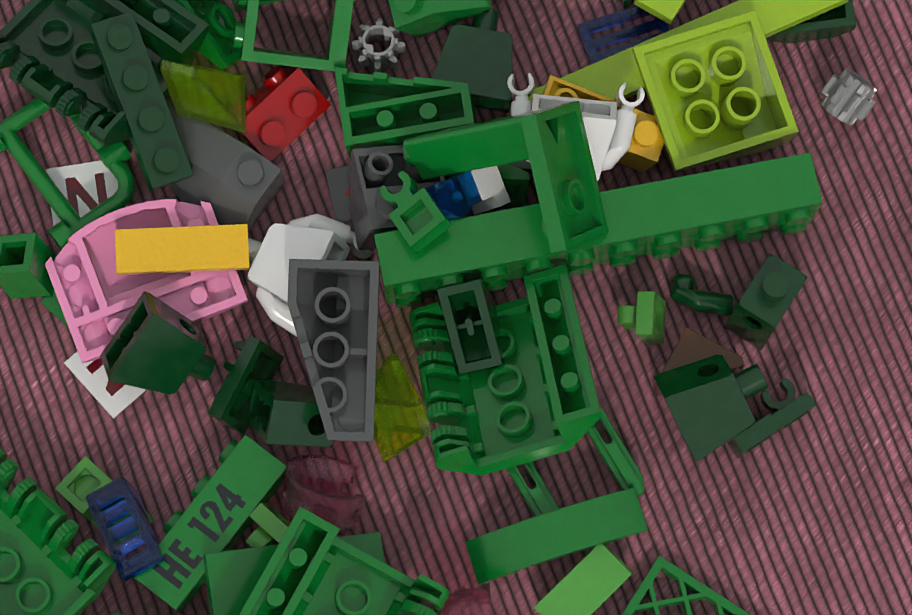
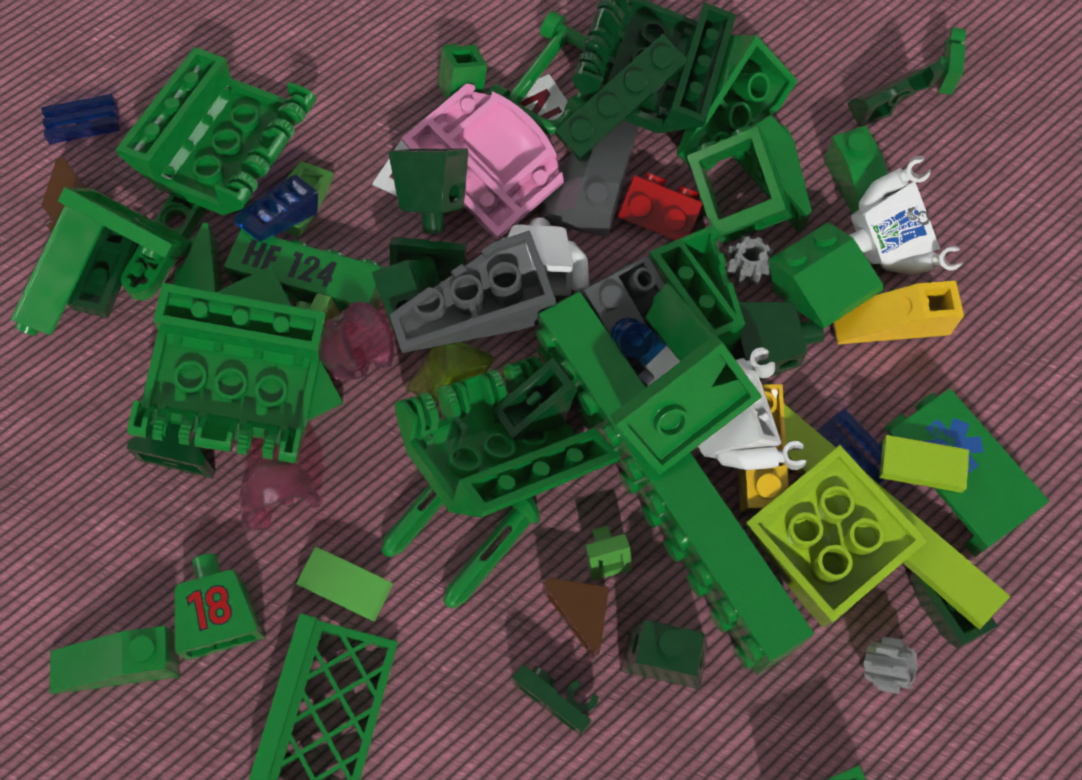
camera: 70 degrees right, 10 degrees down
(182, 249) = (516, 171): yellow tile -> none
(207, 94) = (651, 143): clear neon green slope -> none
(416, 214) = (608, 313): green plate -> none
(556, 535) = (387, 547): green slope -> none
(698, 300) = (641, 593): dark green arm -> none
(710, 401) = (546, 629): dark green torso -> none

